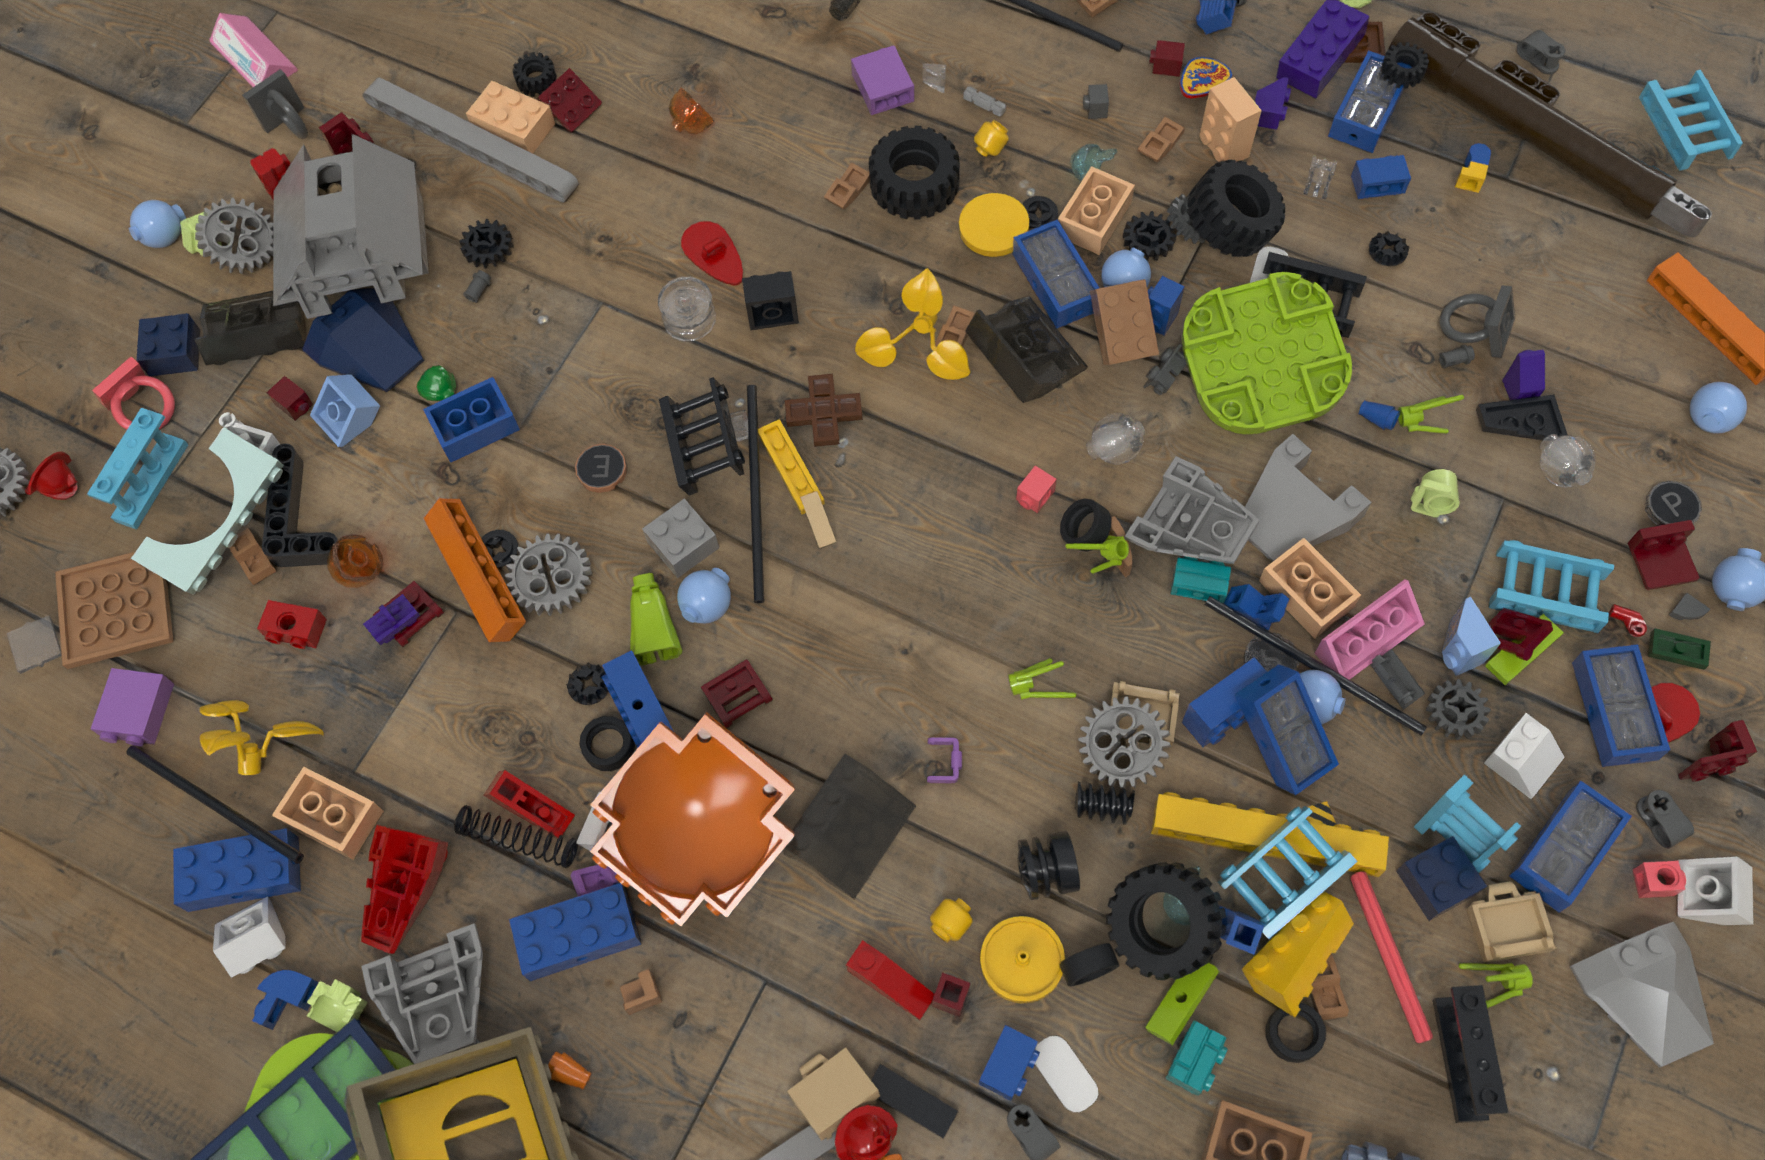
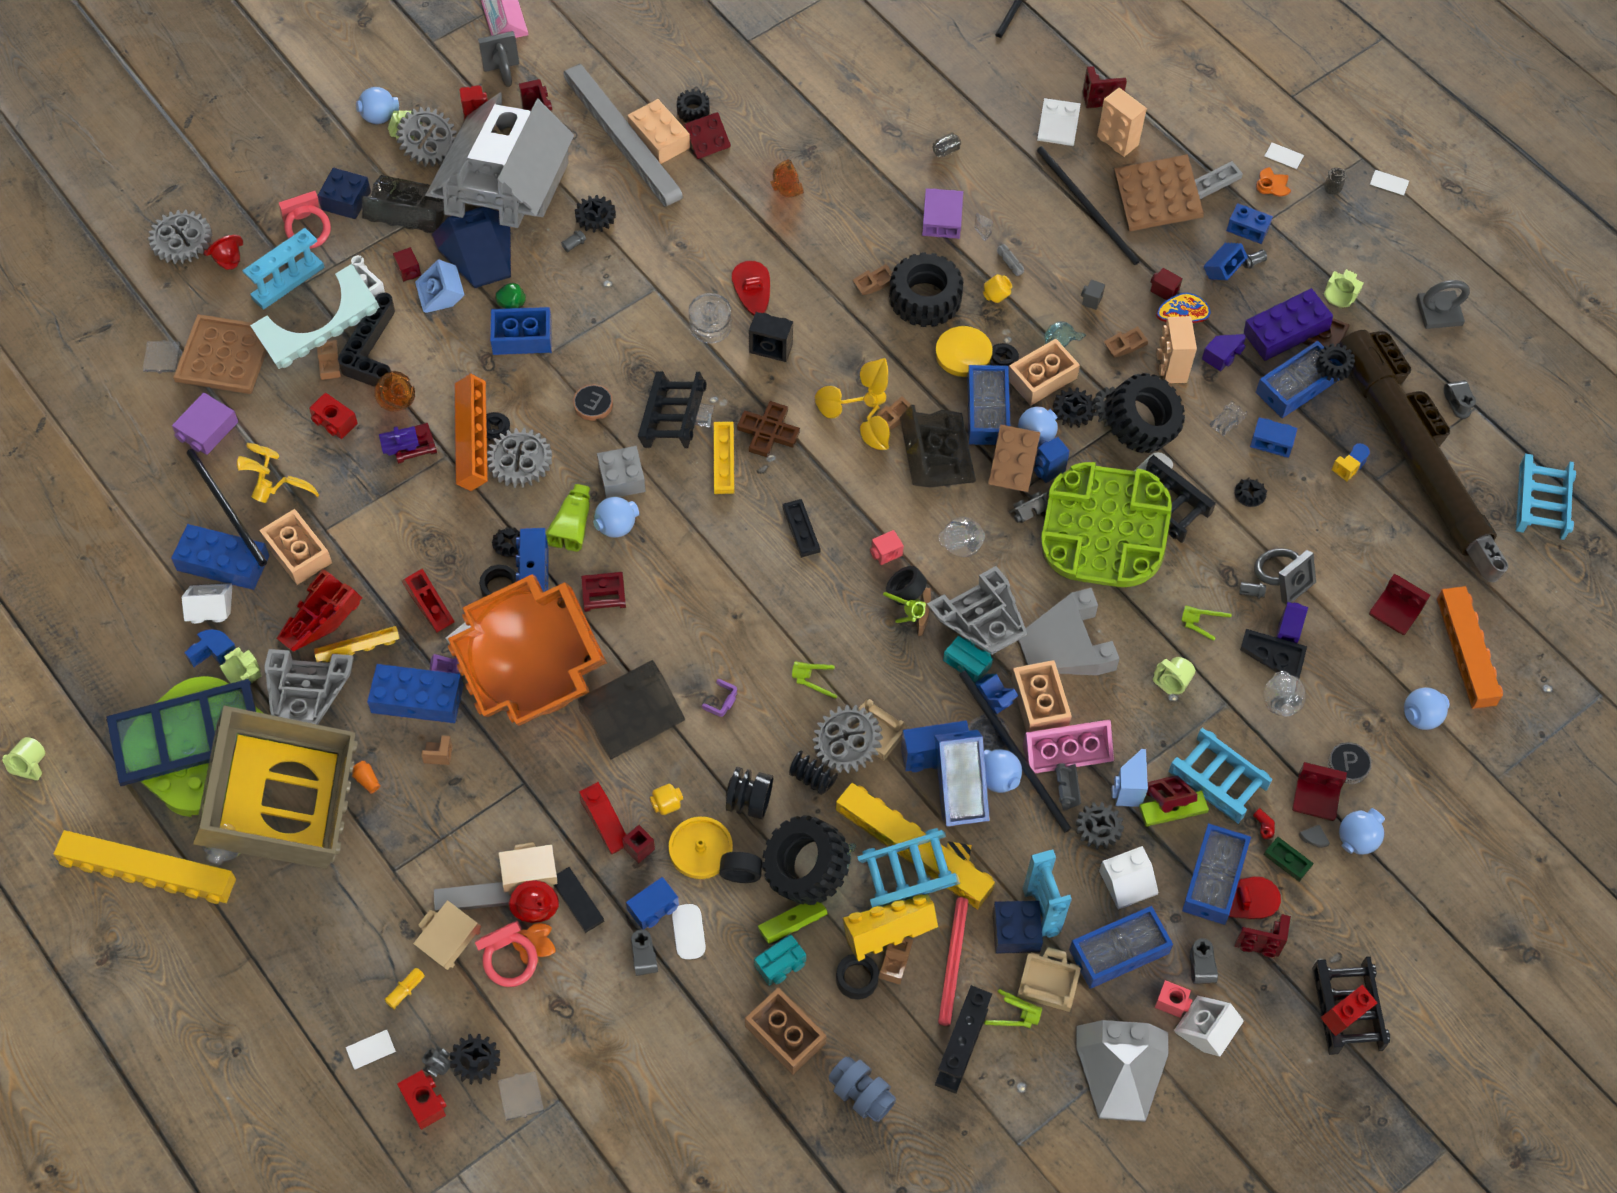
camera: 20 degrees right, 5 degrees down
(462, 907) = (350, 646): none -> yellow plate
(571, 844) = (432, 641): black piece -> none
(755, 494) = (688, 465): black piece -> none
(818, 519) = (723, 501): tan sticker -> none
(924, 510) = (801, 528): none -> black tile
(1242, 930) = (854, 892): blue brick -> none
(1380, 414) = (1170, 606): blue cone -> none
(1619, 303) = (1399, 604): none -> dark red bracket

